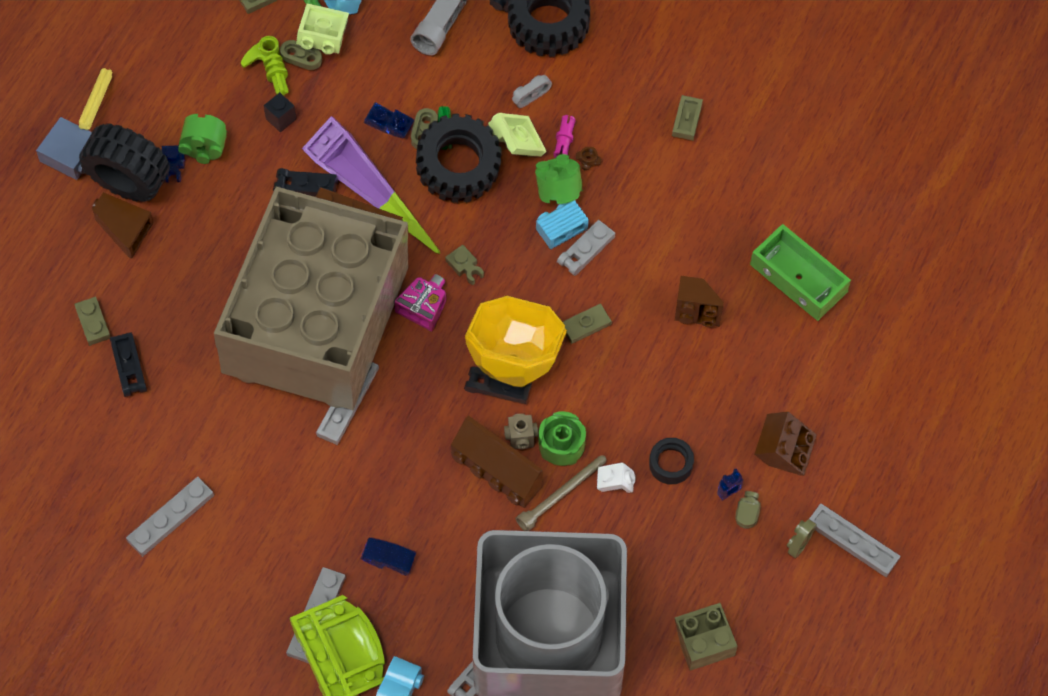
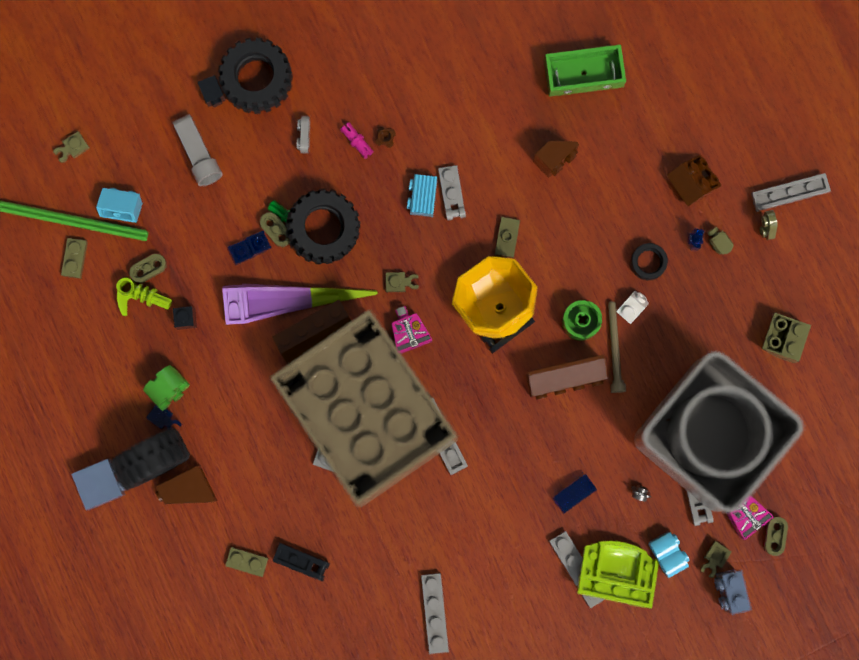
camera: 50 degrees left, 20 degrees up
(95, 99) = (73, 438): light yellow axle -> none
(305, 182) = (255, 341): black plate -> none
(322, 29) = (142, 239): yellowish green plate -> none
(438, 615) = (640, 493): none -> flat silver plate
(518, 134) = (334, 171): yellowish green plate -> none
(521, 431) = (552, 349): dark tan brick -> none
(559, 179) = (392, 172): bright green brick -> none
(687, 117) = (408, 47): olive plate -> none

